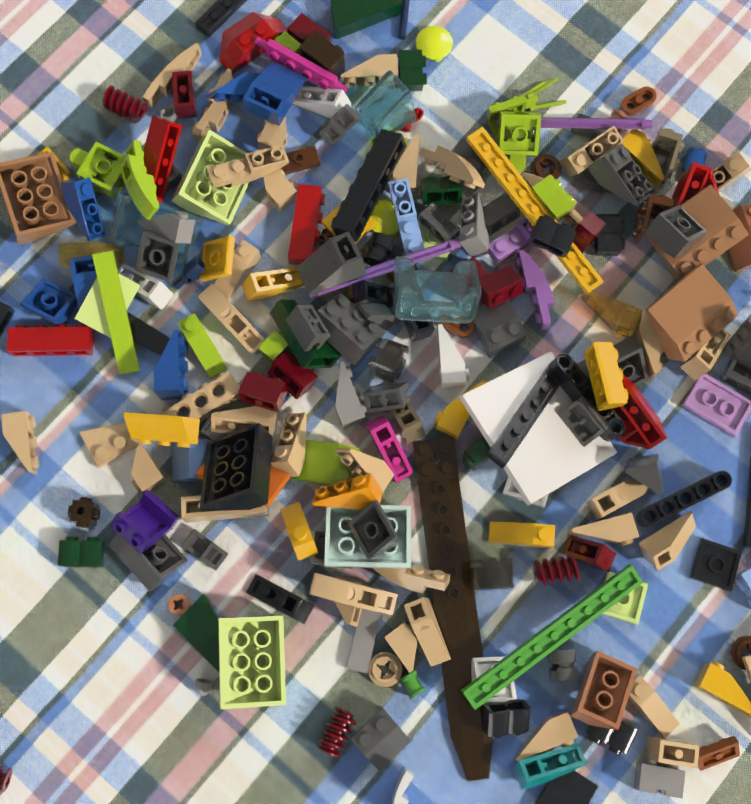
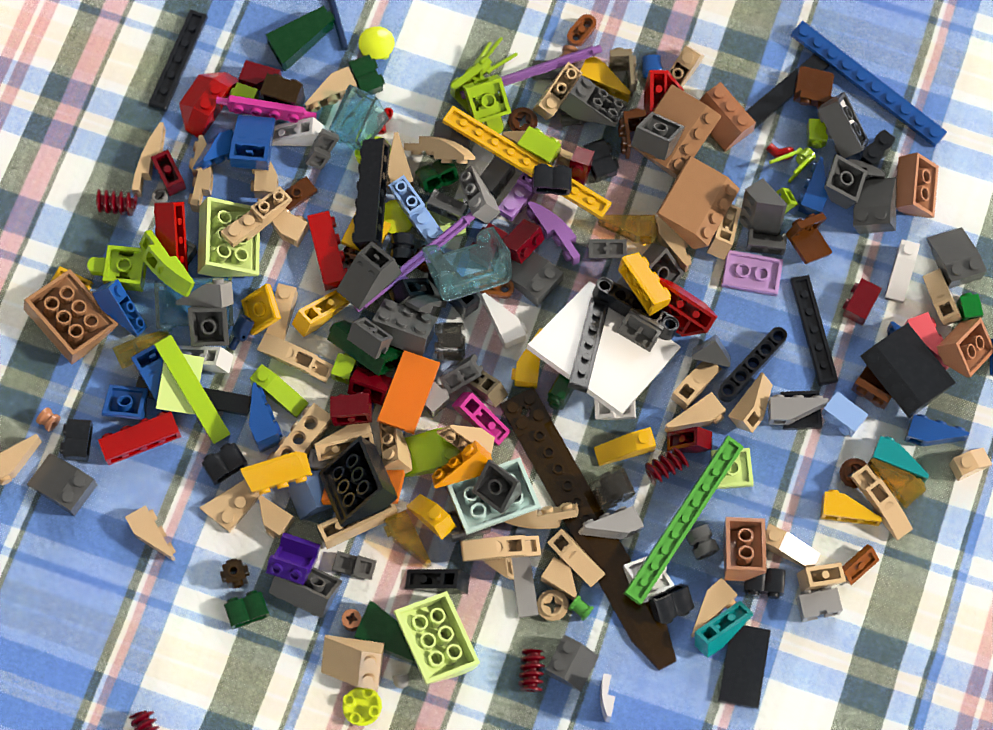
camera: 20 degrees left, 5 degrees down
(120, 397) = (224, 463): none -> black brick
(154, 697) = (362, 706): none -> neon yellow dish
(162, 650) = (353, 661): none -> tan slope
(266, 536) = (405, 535): none -> clear yellow slope
(326, 396) = (408, 392): none -> orange tile
(481, 614) = (615, 526): none -> light grey slope
(581, 325) = (607, 248): none -> dark grey hinge
(702, 561) = (787, 410): none -> light grey slope

